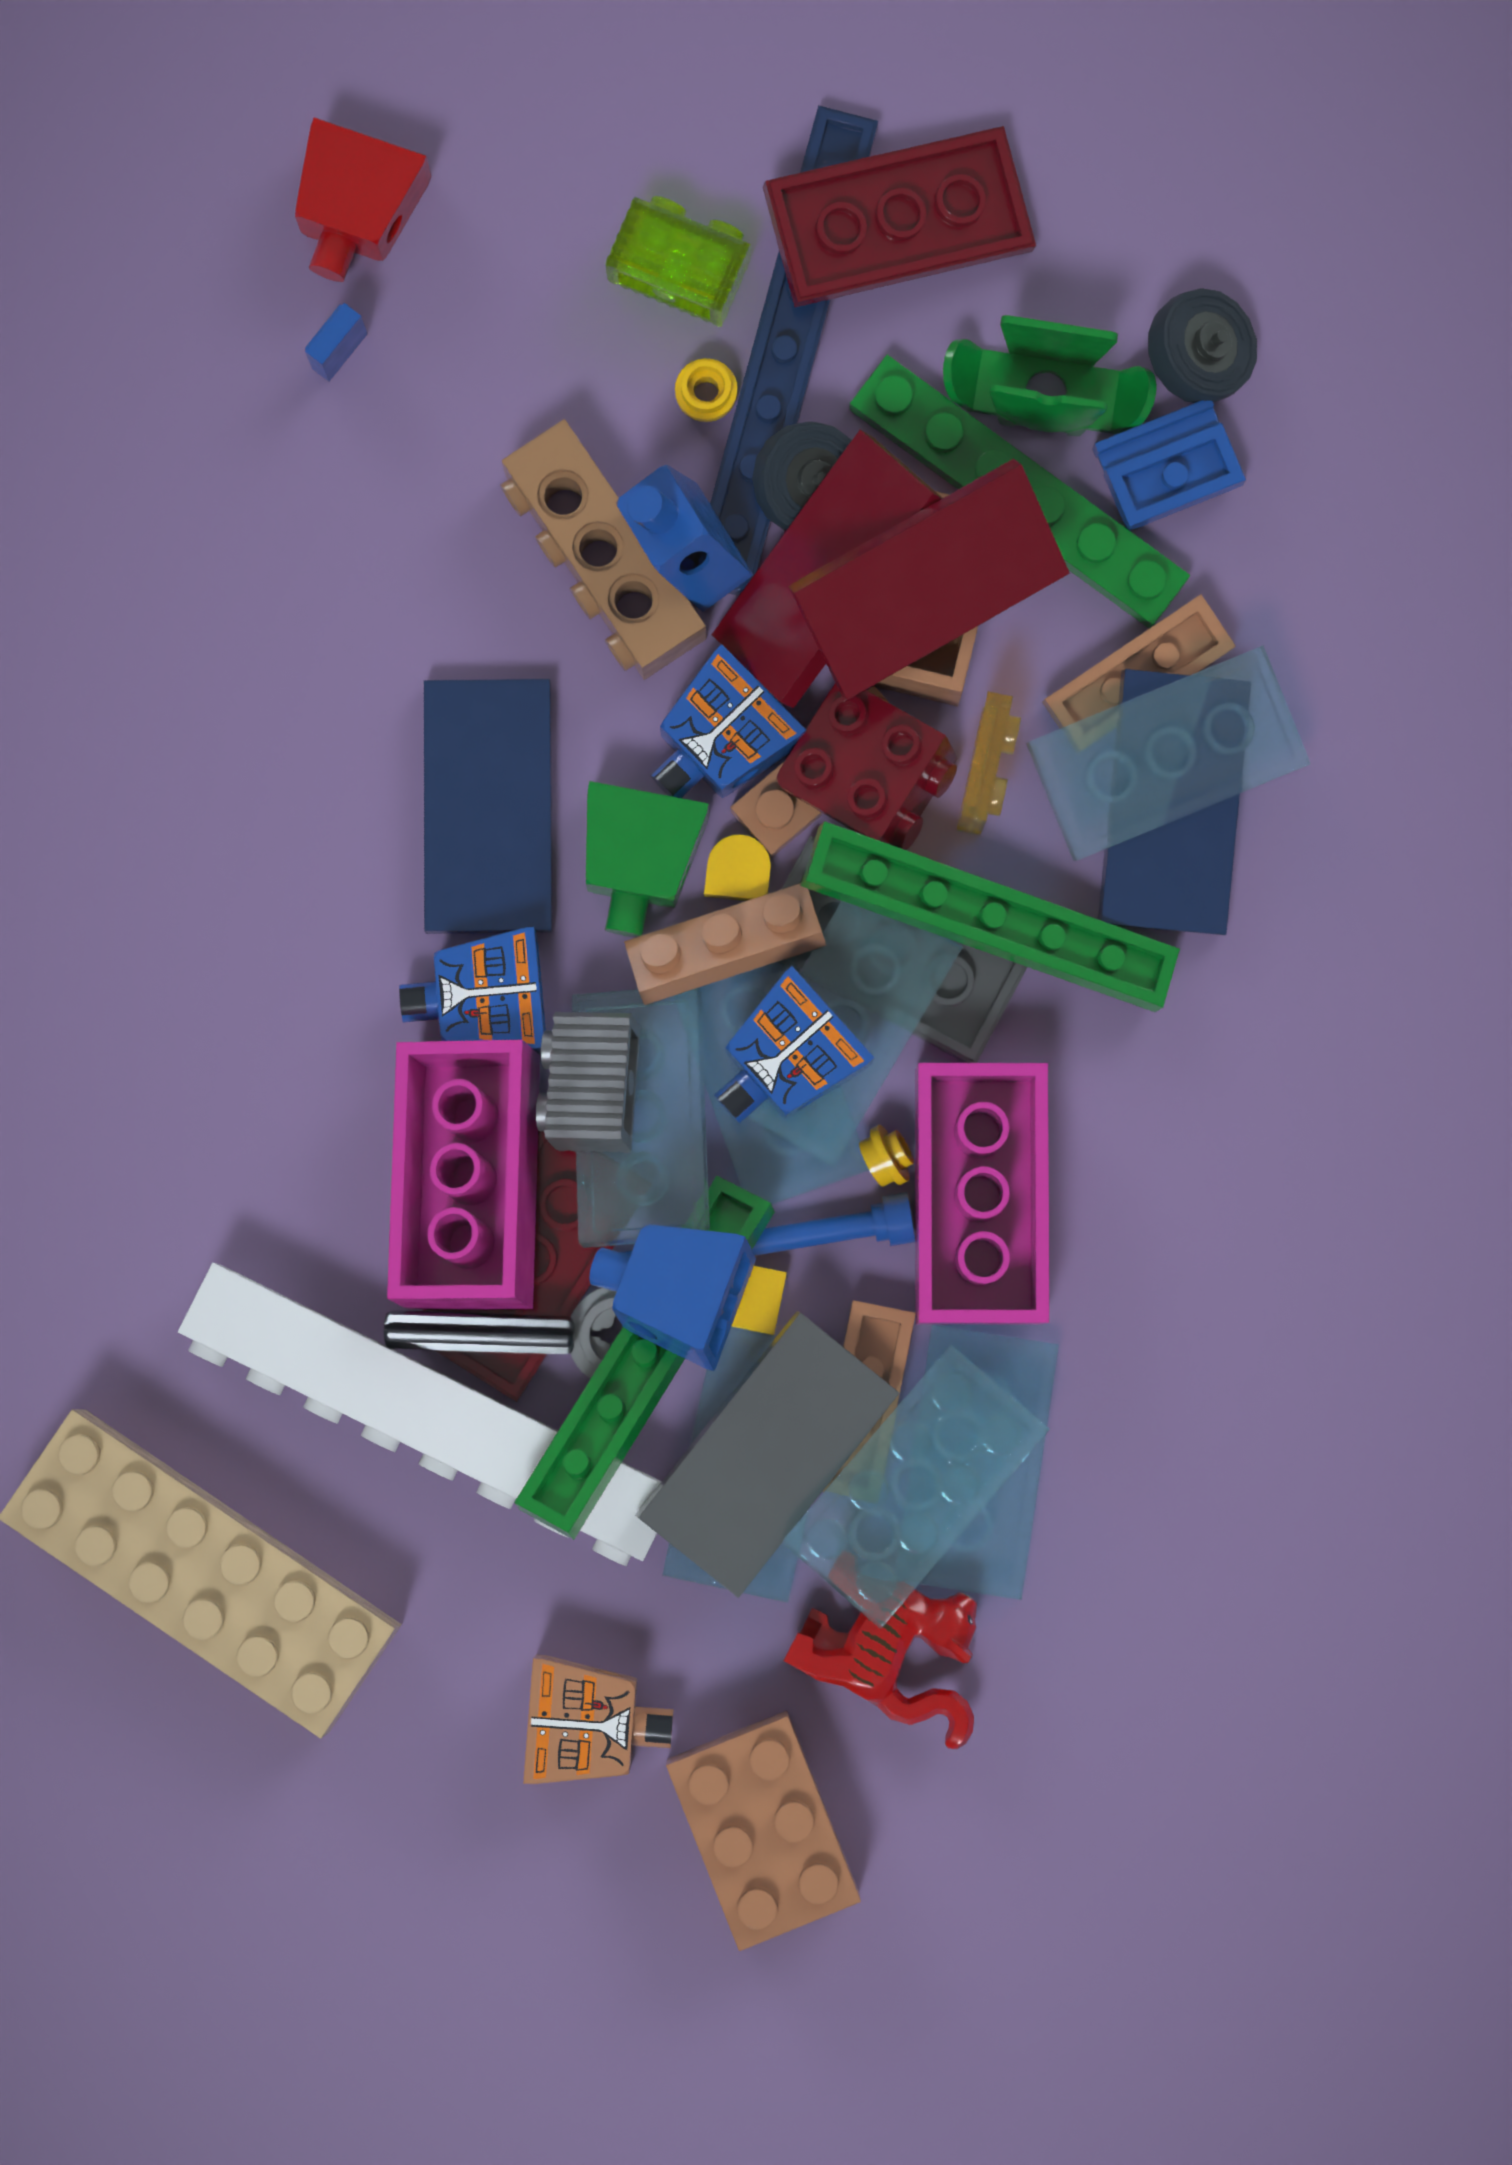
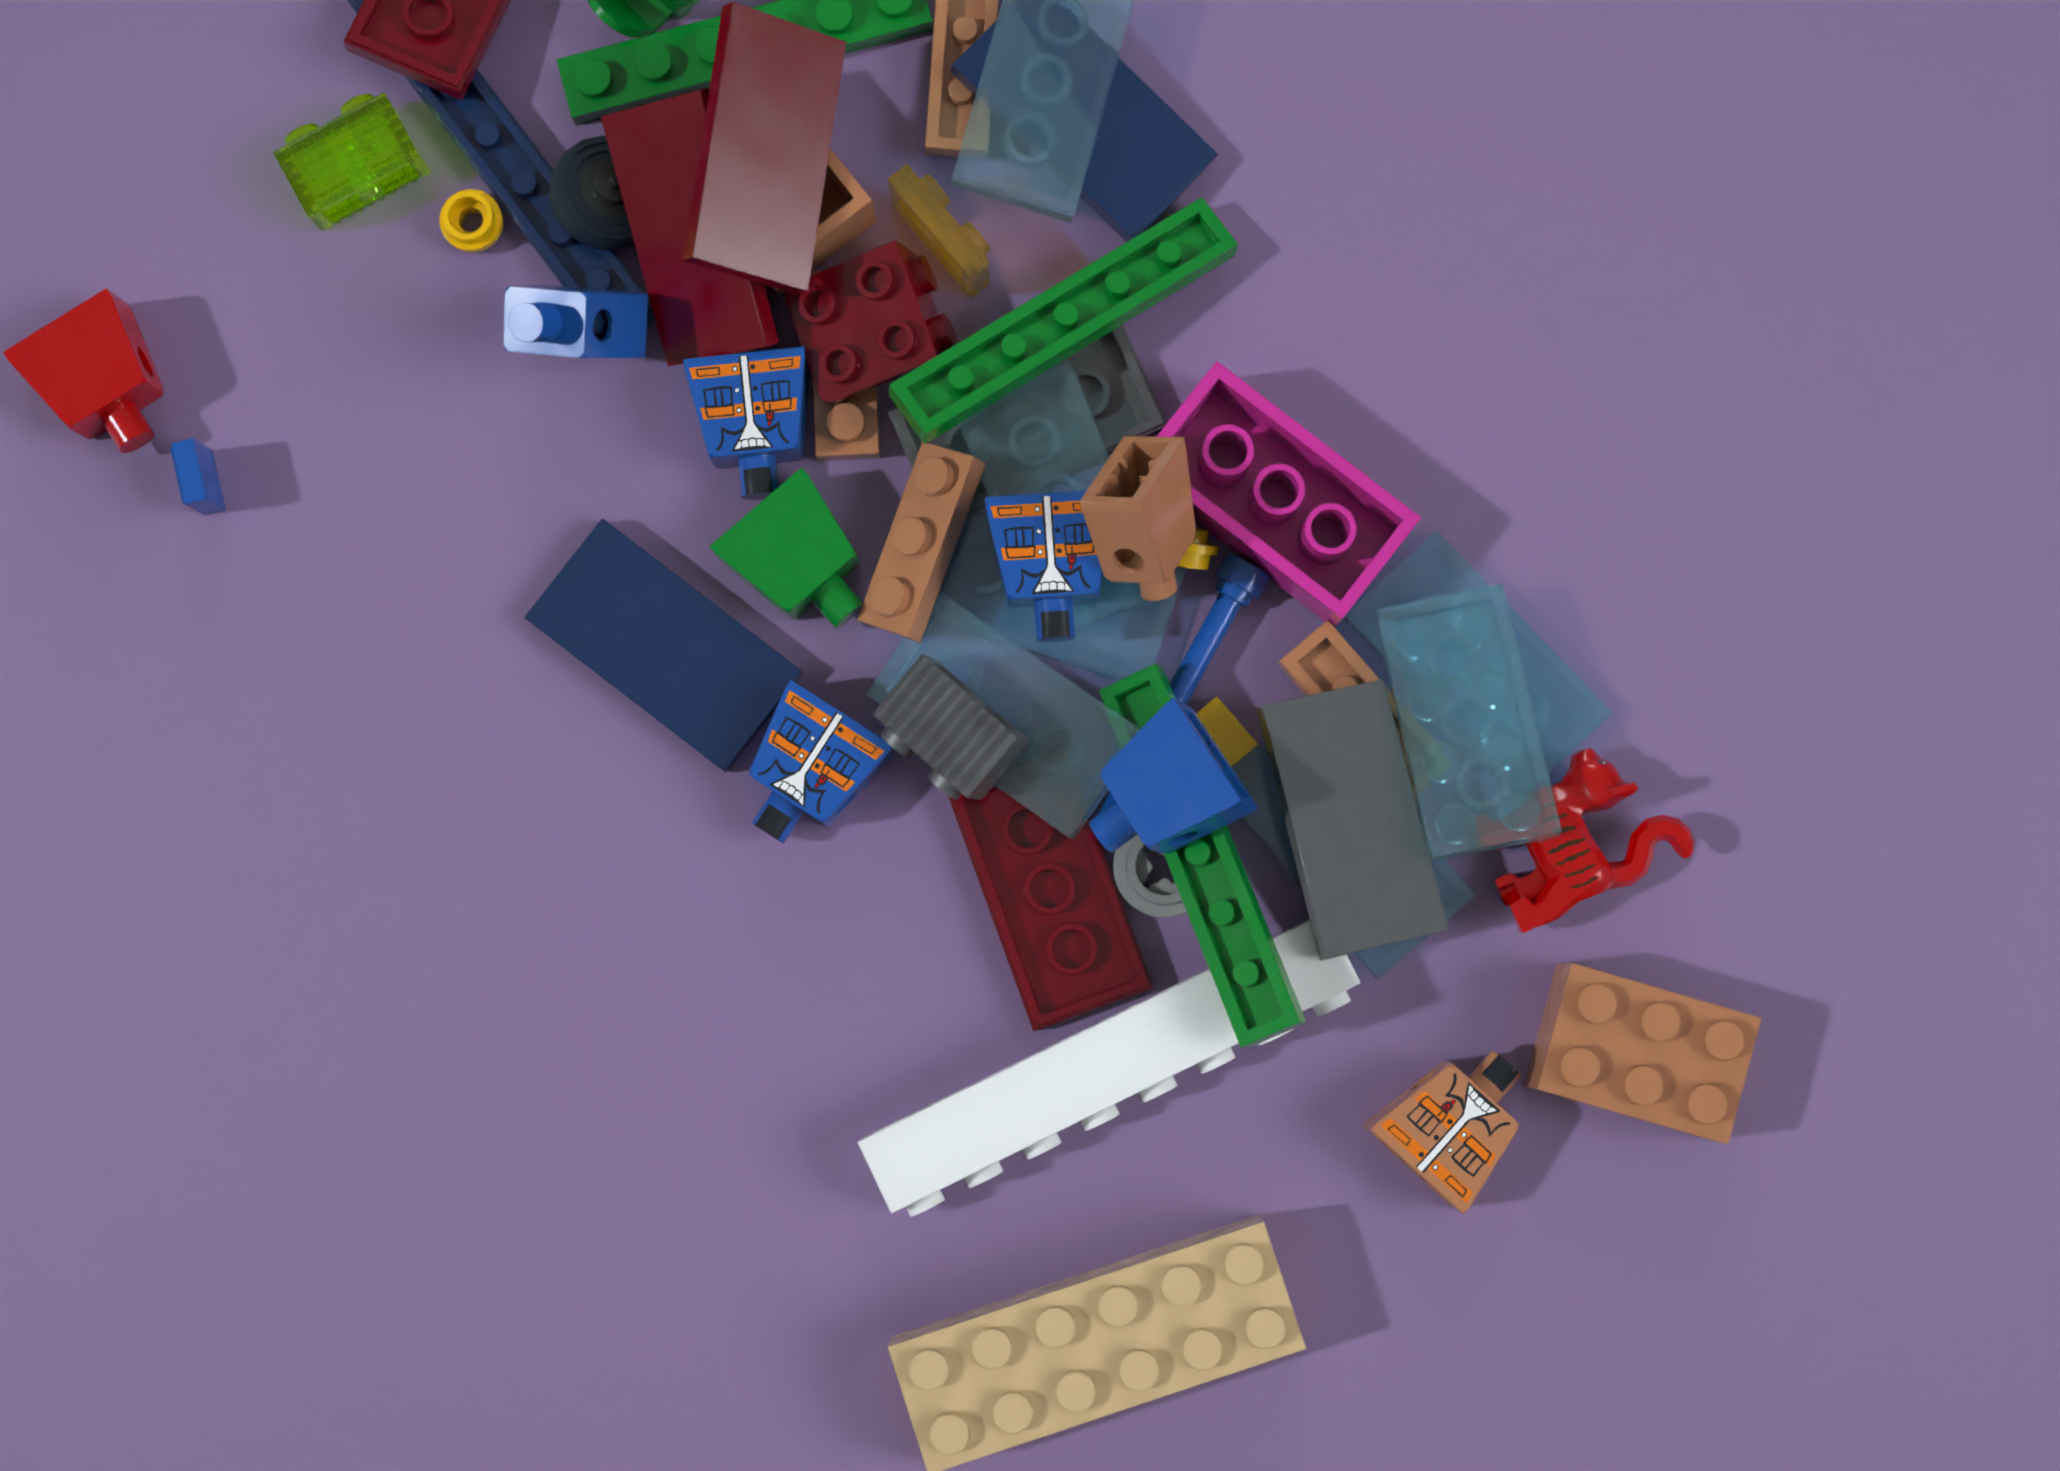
camera: 50 degrees left, 0 degrees up
(464, 1175) = (944, 887): dark pink brick -> none
(479, 1332) = (1077, 973): axle -> none
(559, 463) = (439, 373): medium nougat brick -> none
(737, 869) = (869, 489): yellow tile -> none
(875, 1098) = (1142, 513): none -> nougat torso

